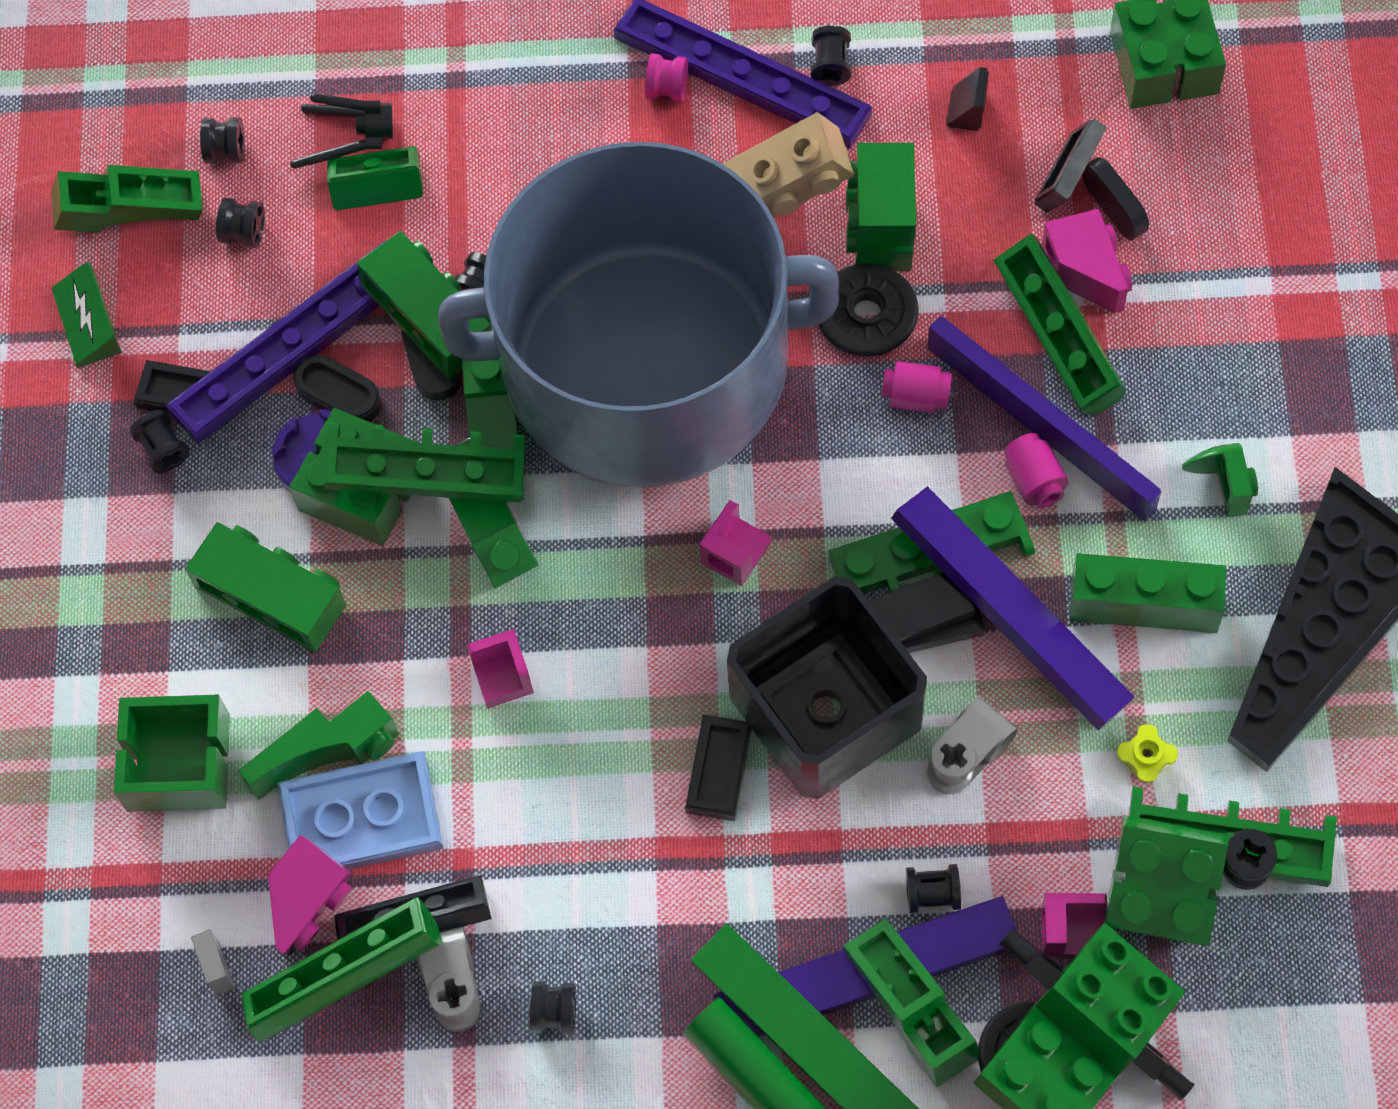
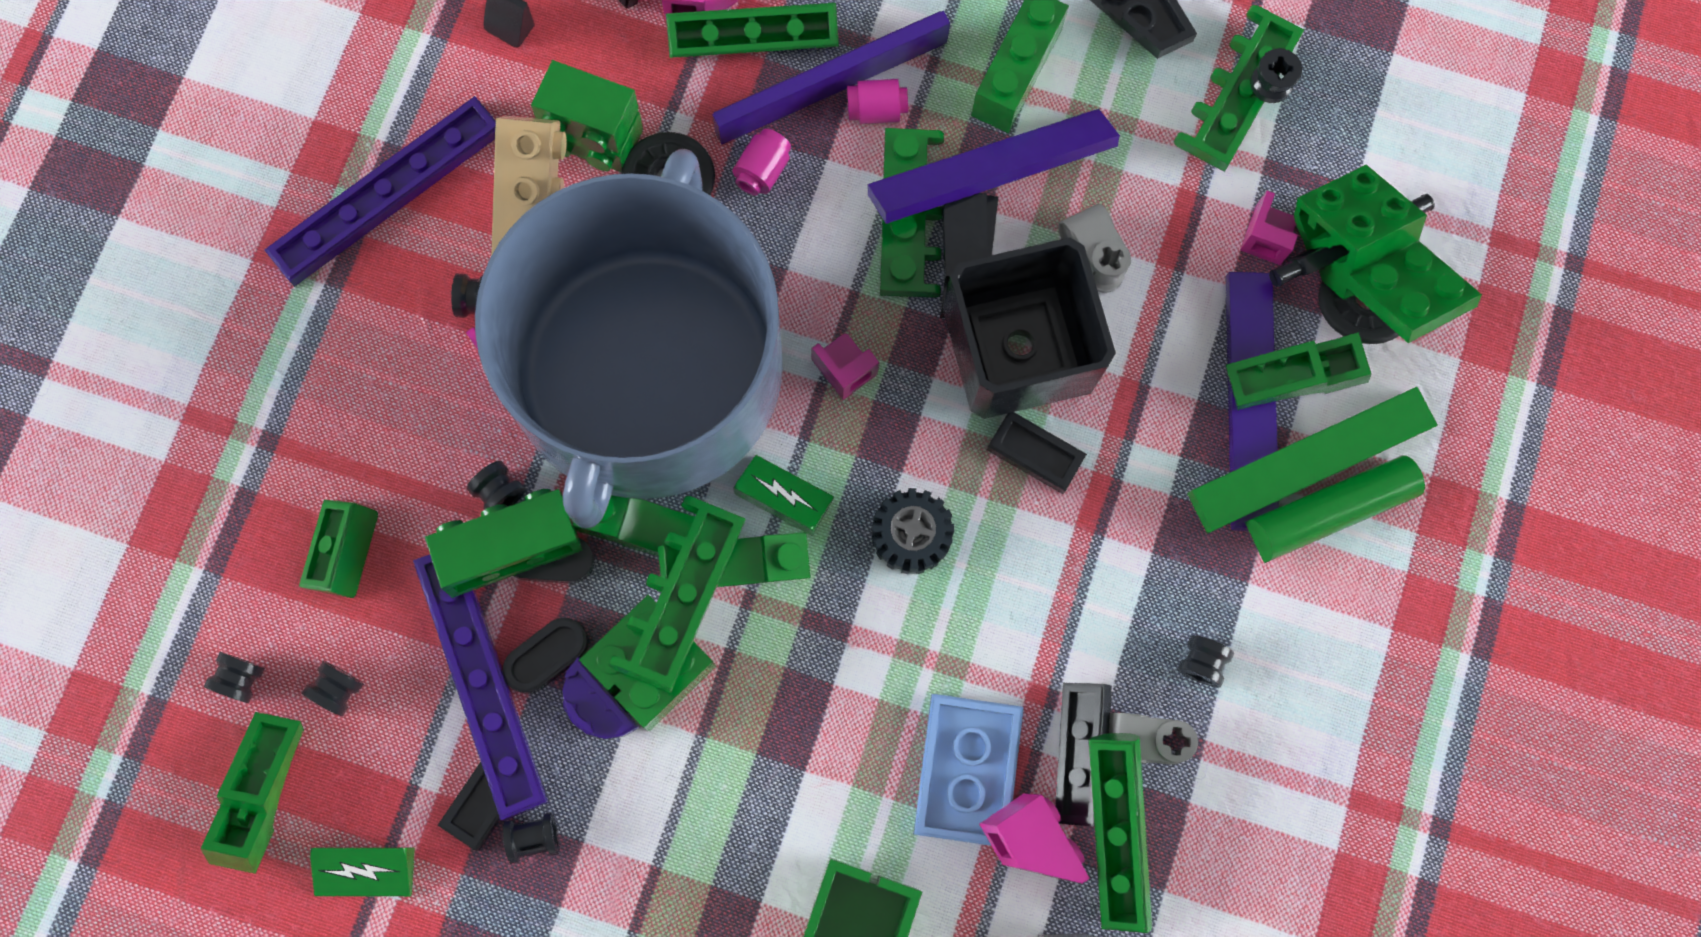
camera: 80 degrees left, 10 degrees up
(267, 585) = (719, 782): green brick -> none
(356, 733) = (897, 744): green slope -> none
(372, 120) = (279, 530): black plant -> none
(500, 668) = (885, 599): dark pink panel -> none
(575, 539) = (783, 494): none -> green slope
(579, 655) = (917, 516): none -> black wheel
(666, 78) = (364, 252): dark pink wheel -> none
(831, 55) = (408, 108): black bush -> none
(933, 888) = (1206, 306): black bush -> none
(1147, 767) = (1143, 129): neon yellow plate -> none
(1166, 881) = (1271, 133): green piece -> none

